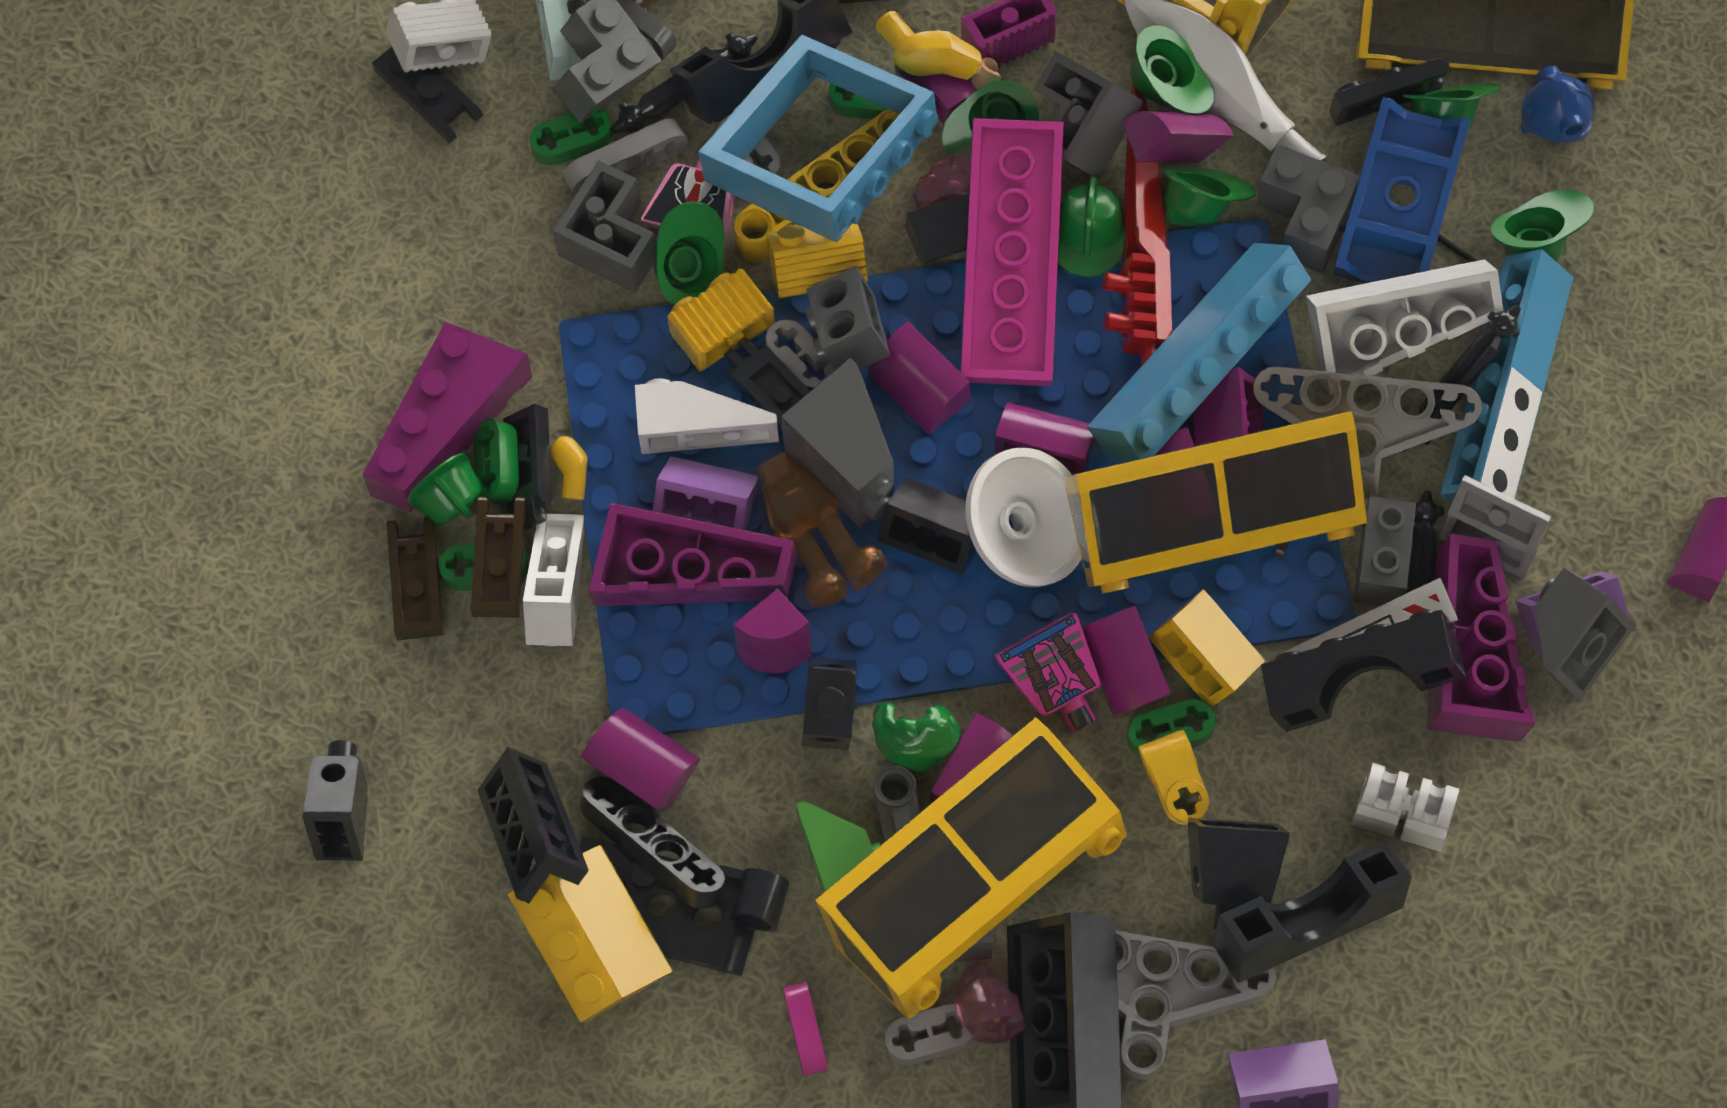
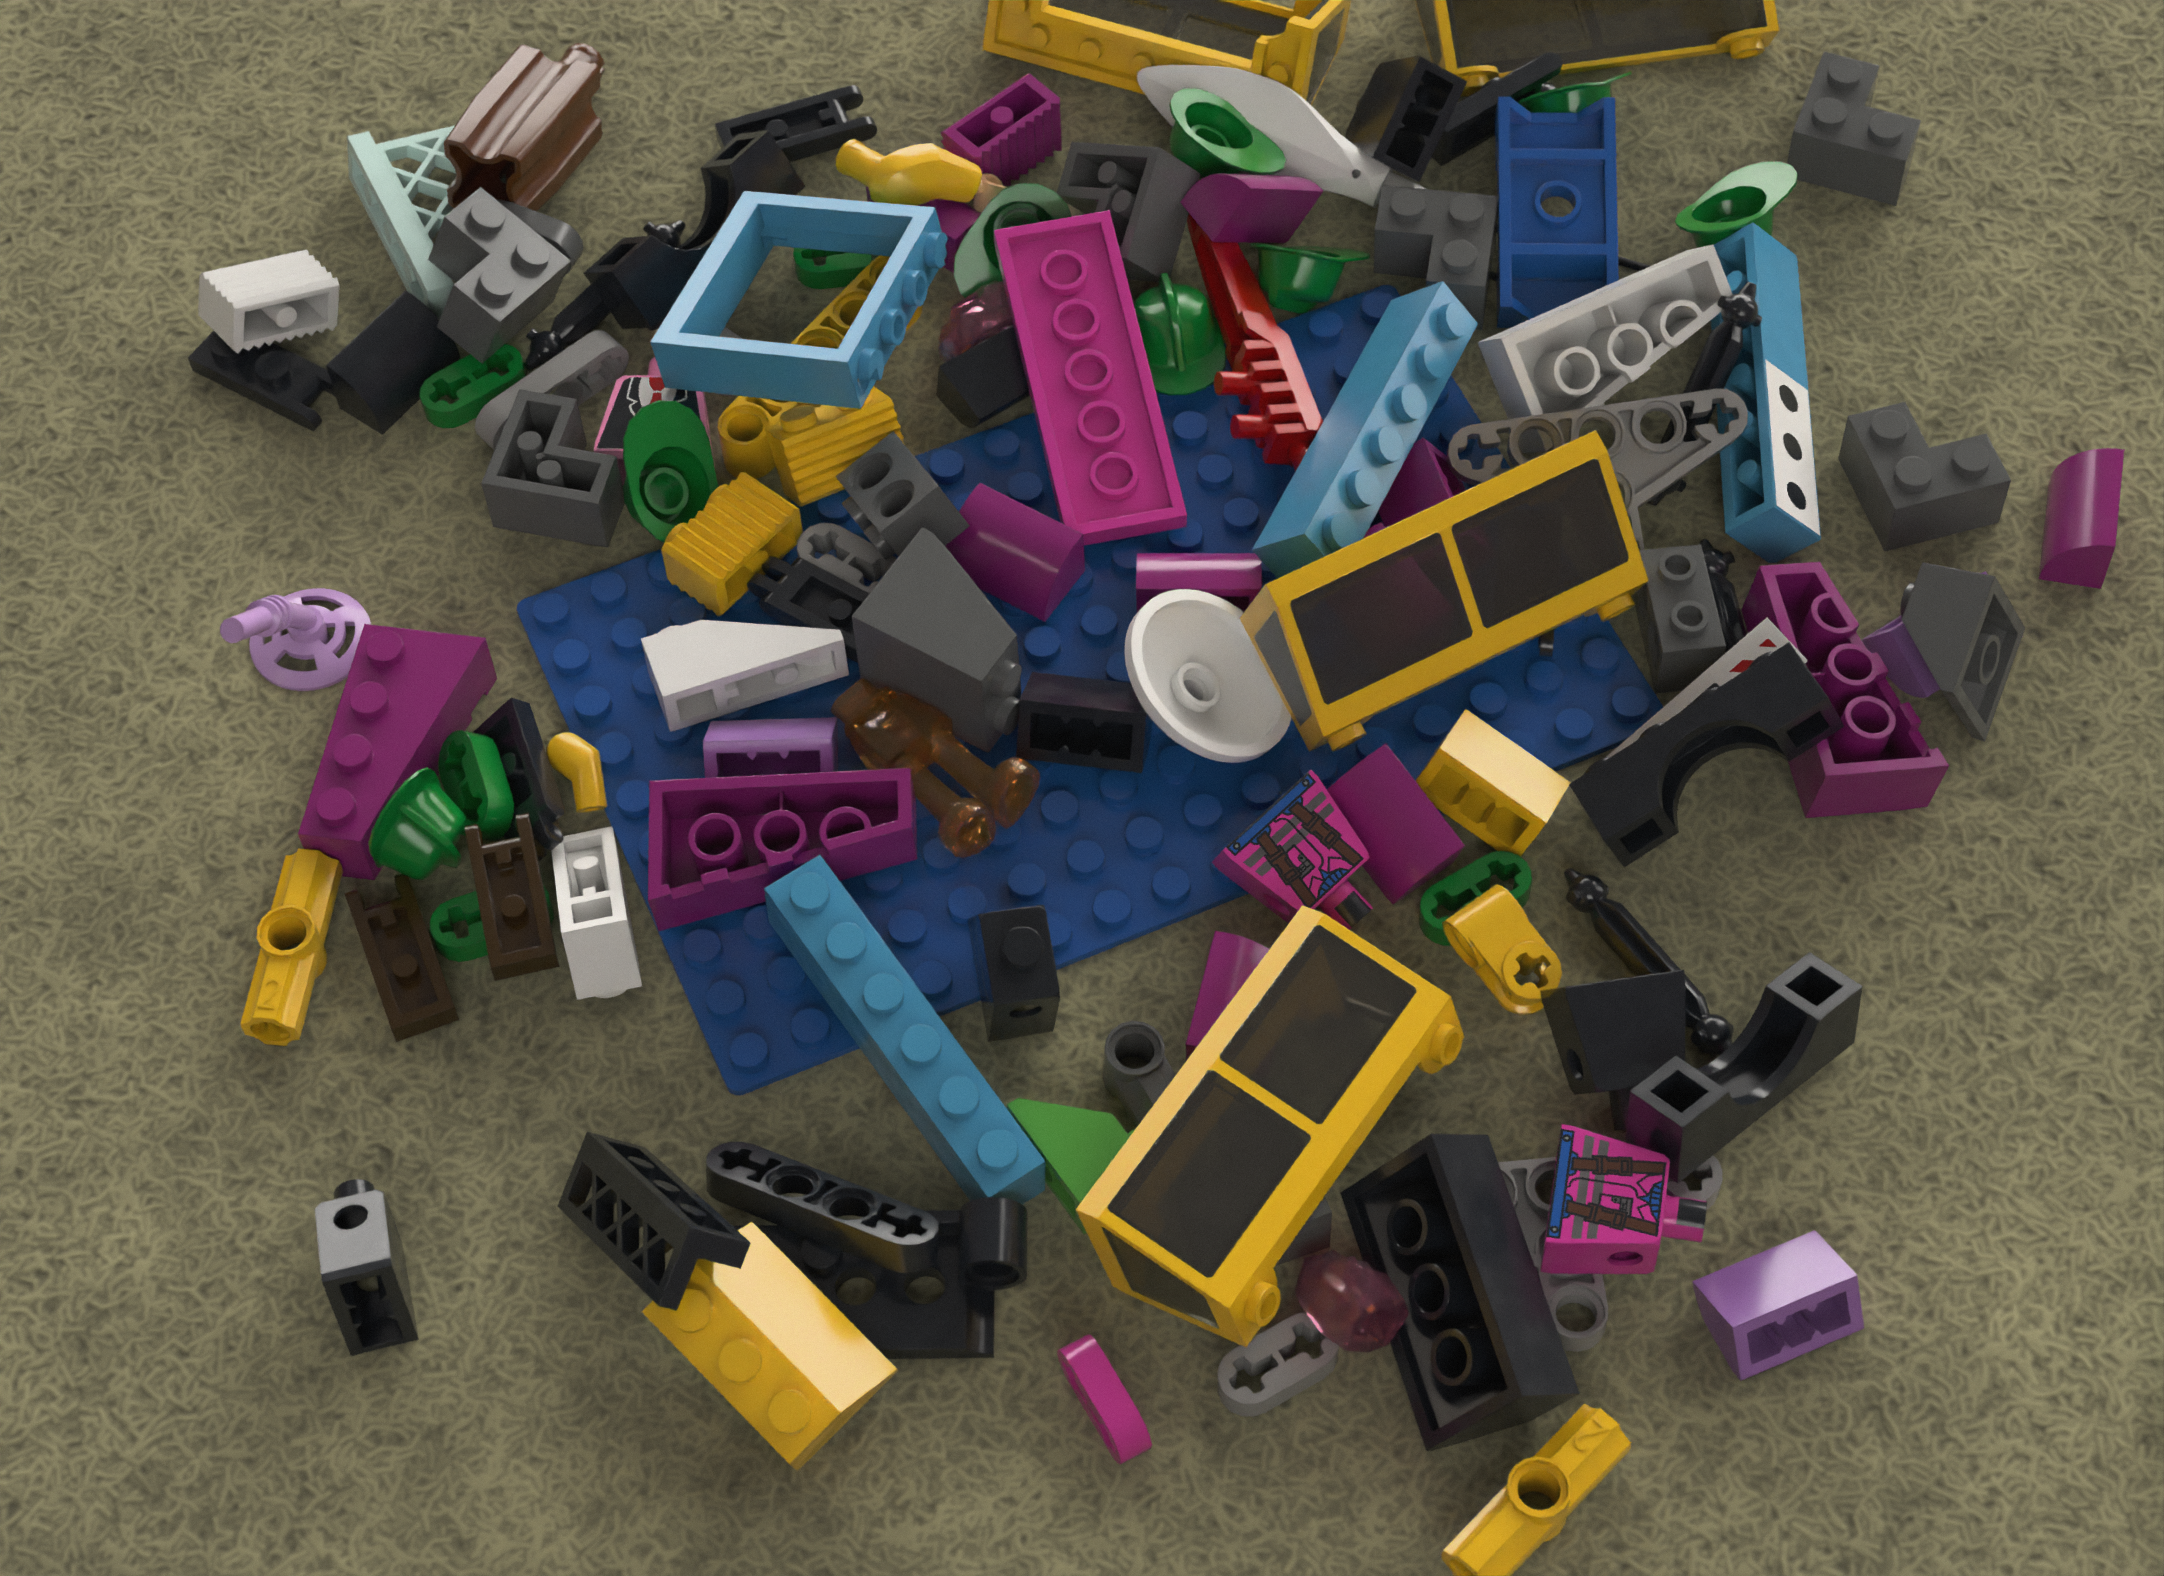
camera: 15 degrees left, 10 degrees down
(330, 576) = (287, 977): none -> yellow piece
(404, 310) = (306, 636): none -> lavender dish
(515, 105) = (389, 361): none -> black brick
(641, 758) = (776, 1103): magenta brick -> none
(739, 734) = (903, 1036): none -> dark azure brick
(773, 636) = (917, 895): magenta brick -> none
(915, 742) = (1143, 983): green hair -> none
(1186, 989) = (1612, 1207): none -> torso
(1277, 807) = (1644, 956): none -> black wheel
(1310, 89) = (1405, 113): none -> black torso
(1386, 800) = (1790, 910): white legs -> none
(1495, 516) = (1812, 528): light grey slope -> none
(1557, 105) = (1704, 76): blue helmet -> none
(1598, 495) = (1915, 489): none -> dark grey brick
(1644, 186) = (1845, 140): none -> dark grey brick

